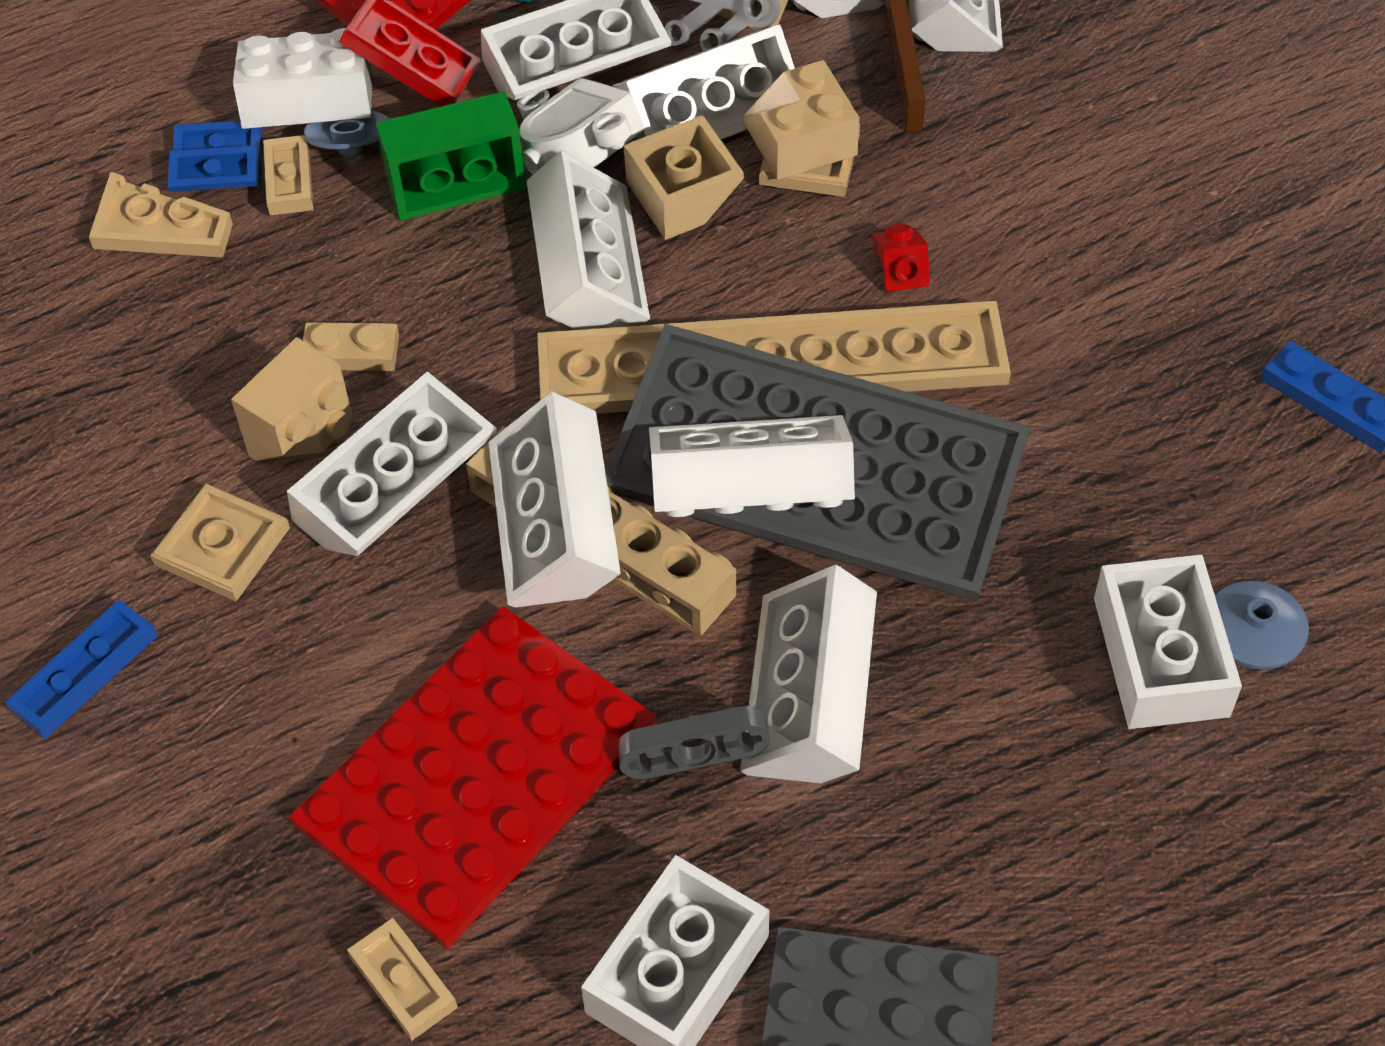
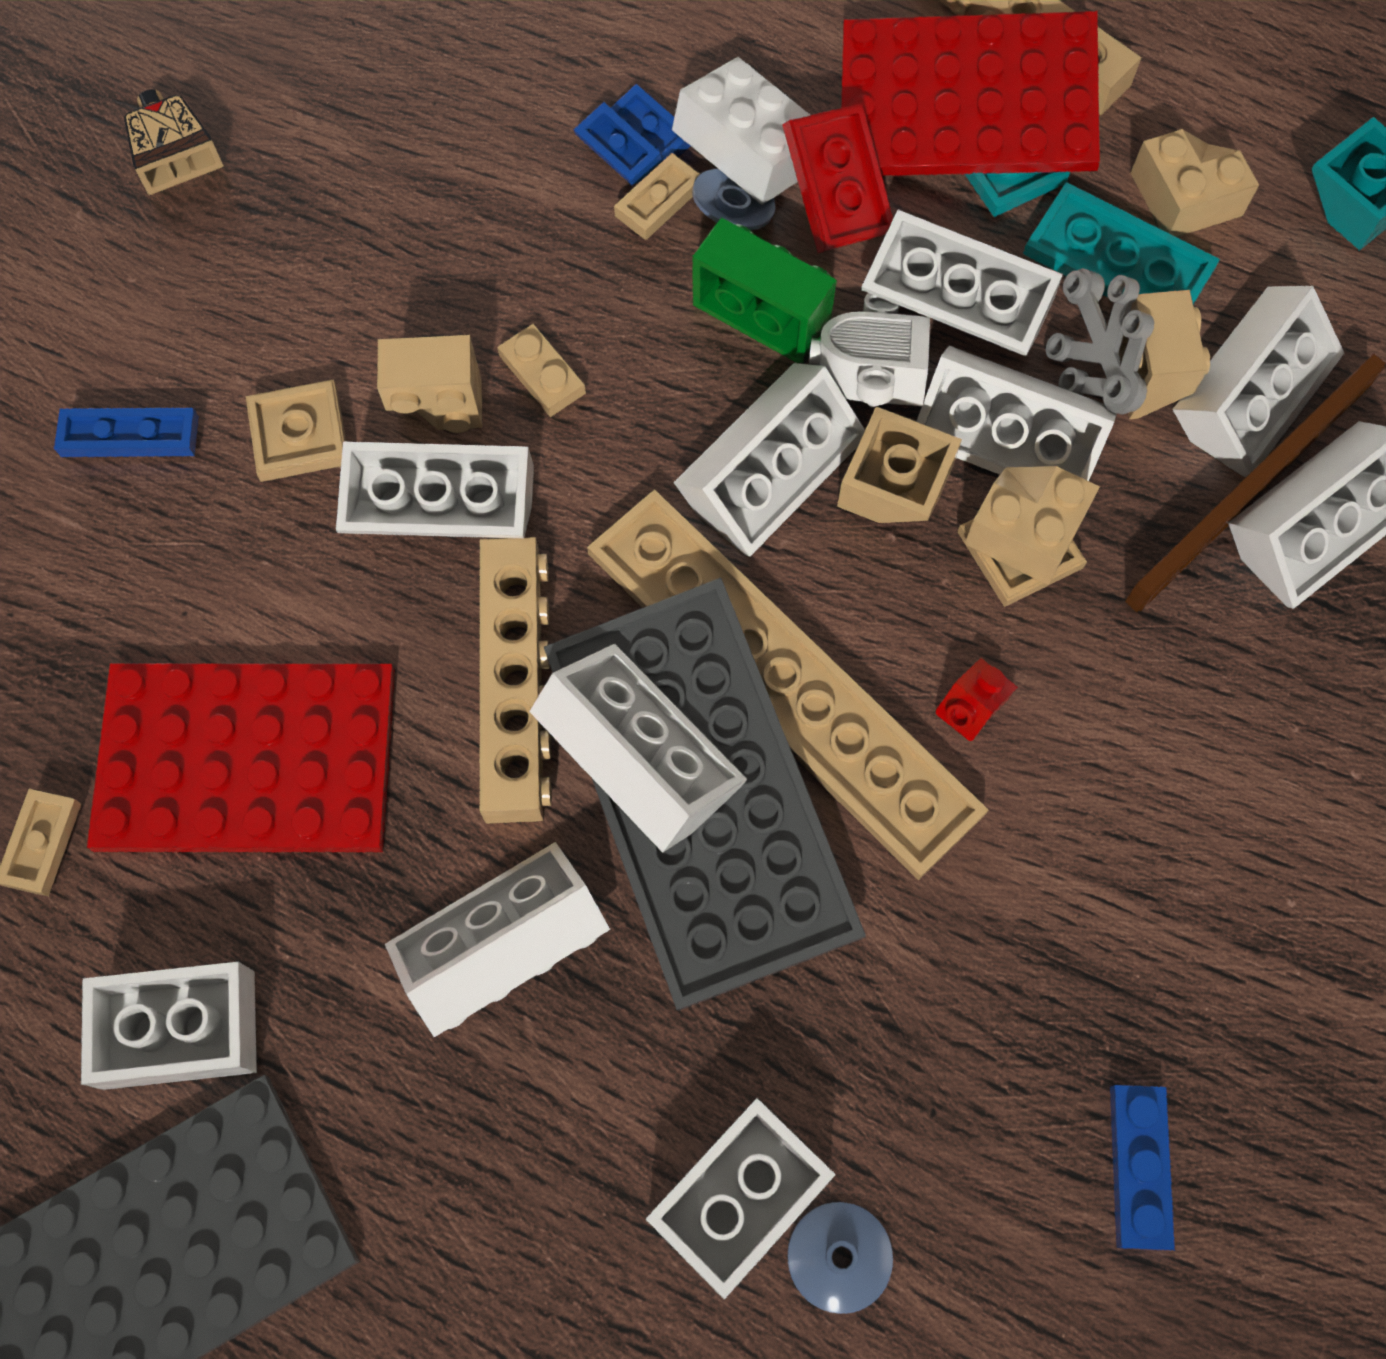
camera: 50 degrees right, 15 degrees up
(150, 222) = (538, 149): tan wing -> none
(553, 504) = (479, 634): white slope -> none
(725, 723) = (369, 895): dark grey beam -> none

